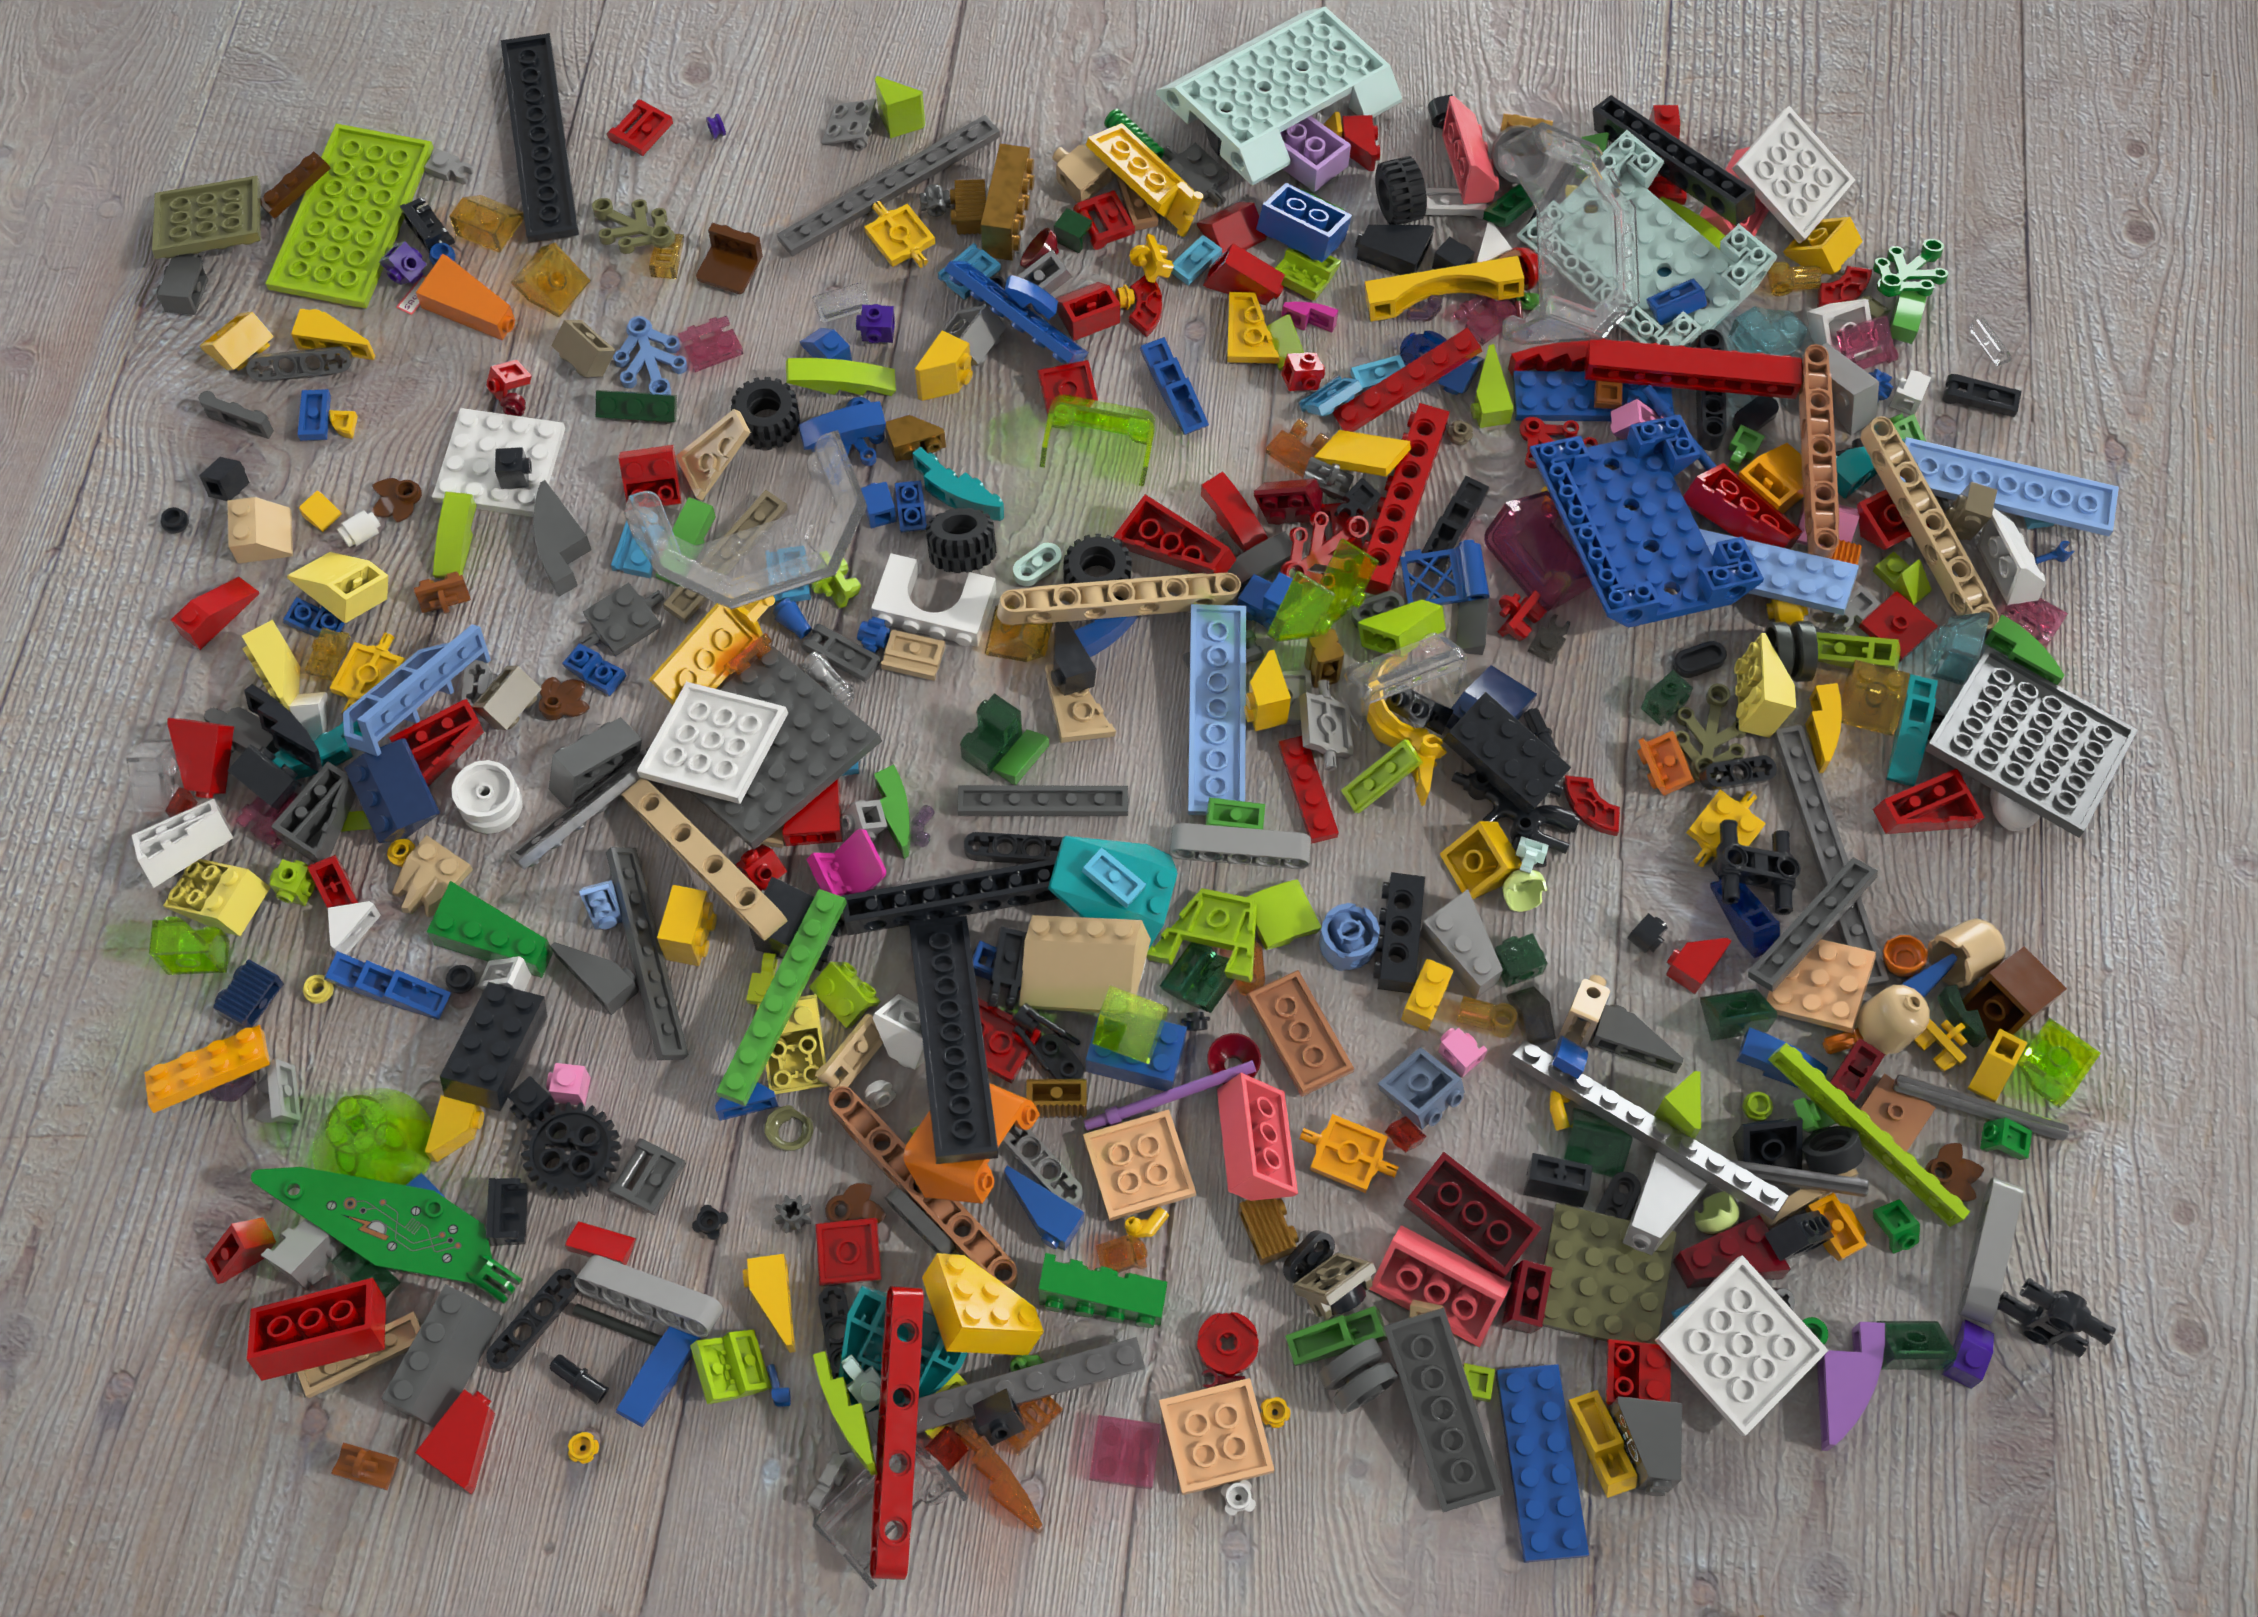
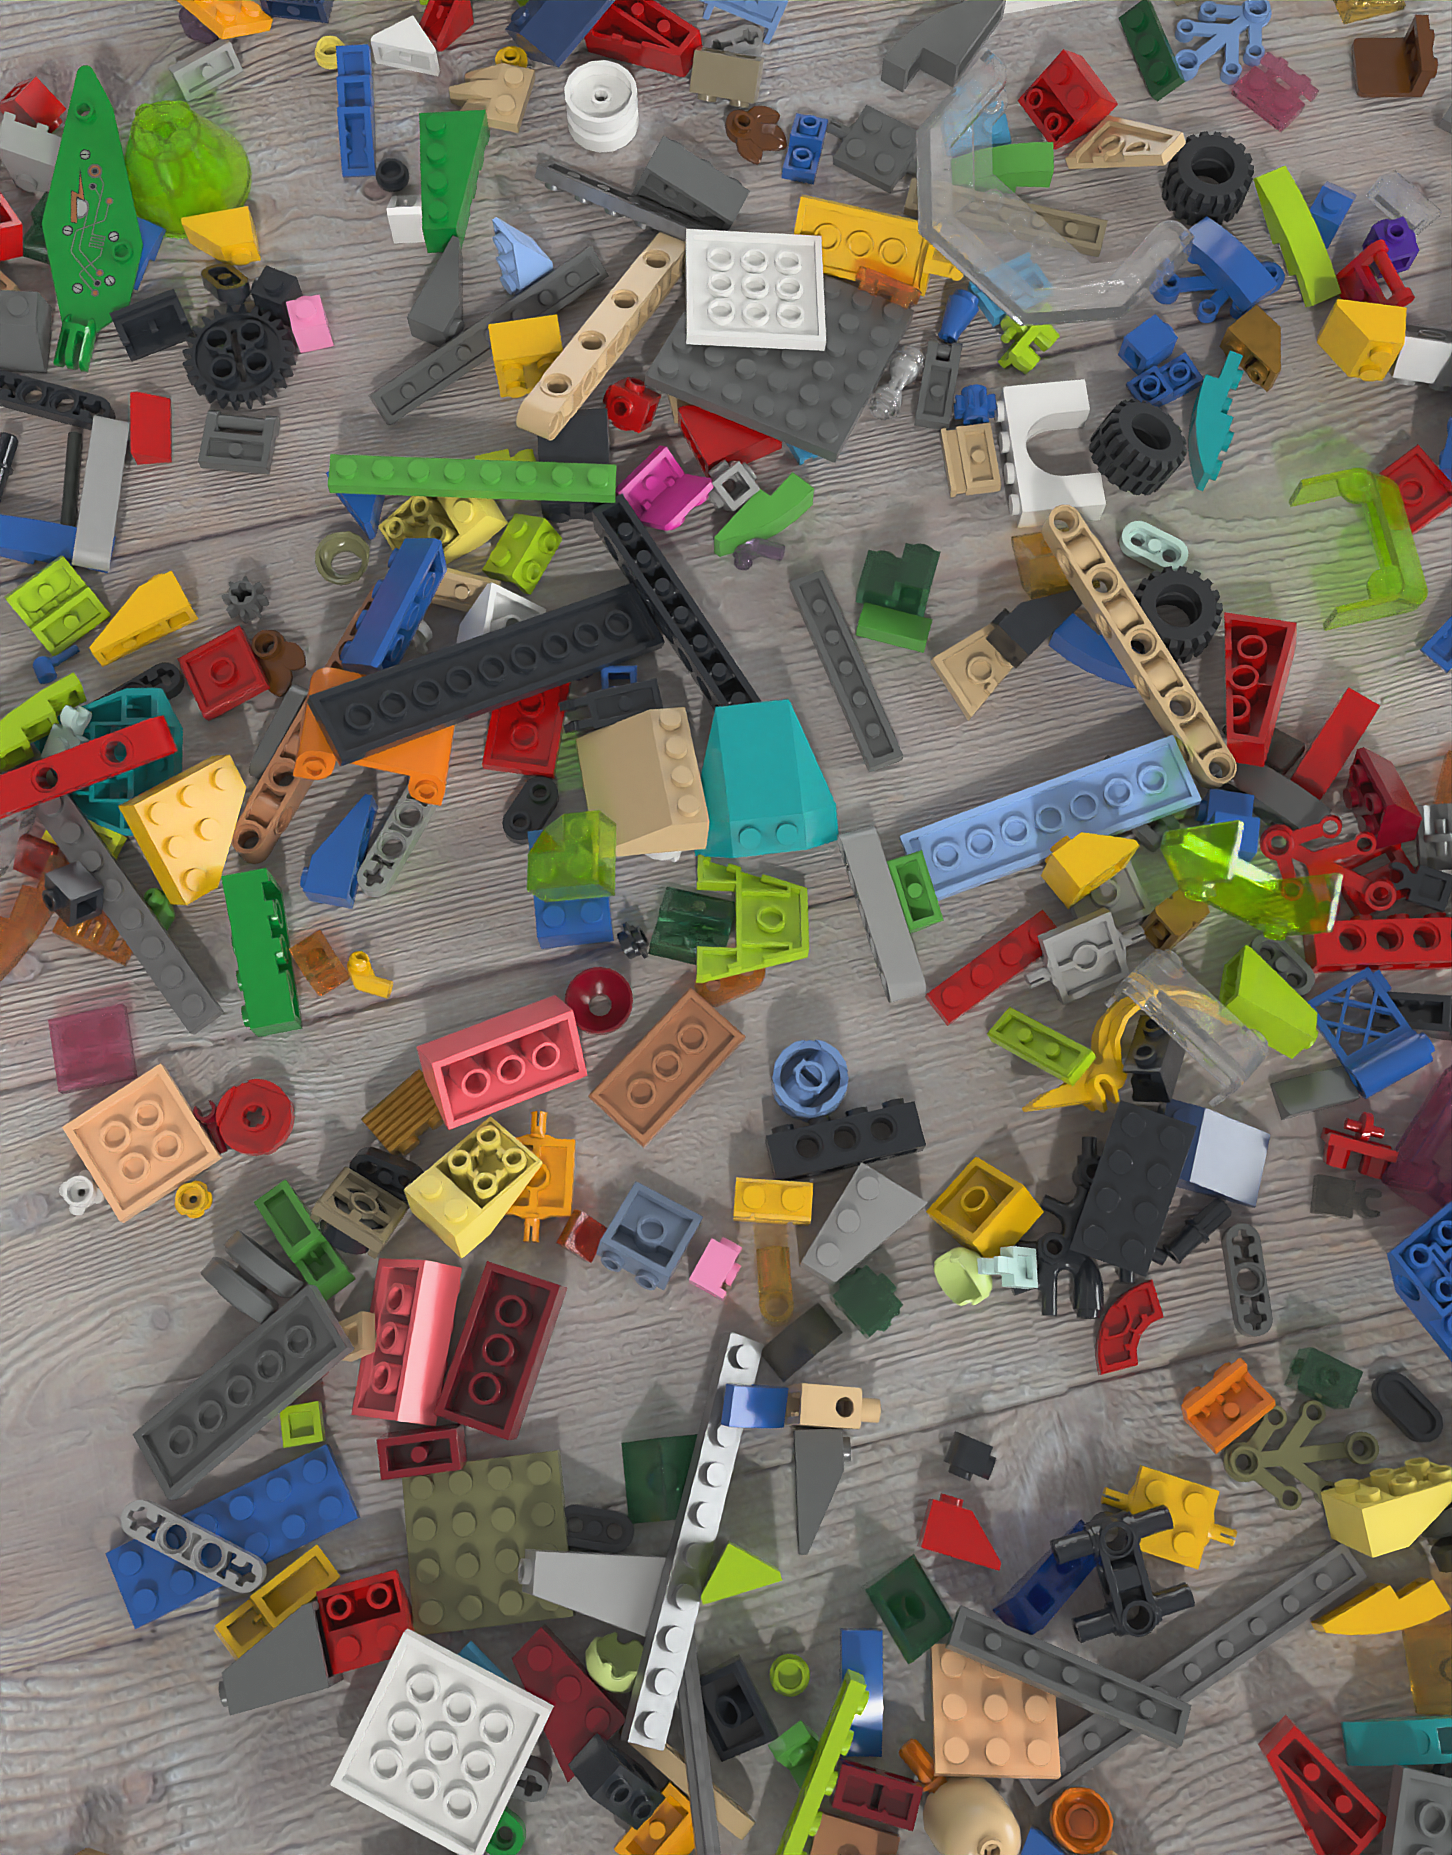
camera: 70 degrees right, 10 degrees up
(493, 1046) = (318, 230): black brick -> none
(500, 1137) = (226, 283): none -> black plate
(708, 1213) = (209, 514): black plate -> none
(869, 1089) = (397, 607): none -> blue slope
(902, 355) = (1360, 285): none -> red plate
(1019, 843) = (773, 668): black beam -> none
(1028, 1020) = (554, 752): black plant -> none
(1058, 1097) = (475, 819): pearl gold brick -> none
(1113, 877) = (755, 772): medium azure plate -> none
(1115, 1115) = (485, 895): medium lavender bar -> none
(1139, 1165) = (434, 942): light nougat plate -> none
(1284, 914) = (812, 993): lime slope -> none
(1343, 1194) = (472, 1186): none -> light yellow slope
(1544, 1485) = (191, 1551): none -> light grey beam
(1558, 1111) = (682, 1416): yellow arm -> none
(1558, 1180) = (591, 1442): black hinge -> none
(1591, 729) = (1260, 1307): none -> dark grey beam
(1730, 780) = (1252, 1524): black beam -> none
(1833, 1150) = (735, 1808): black tyre -> none

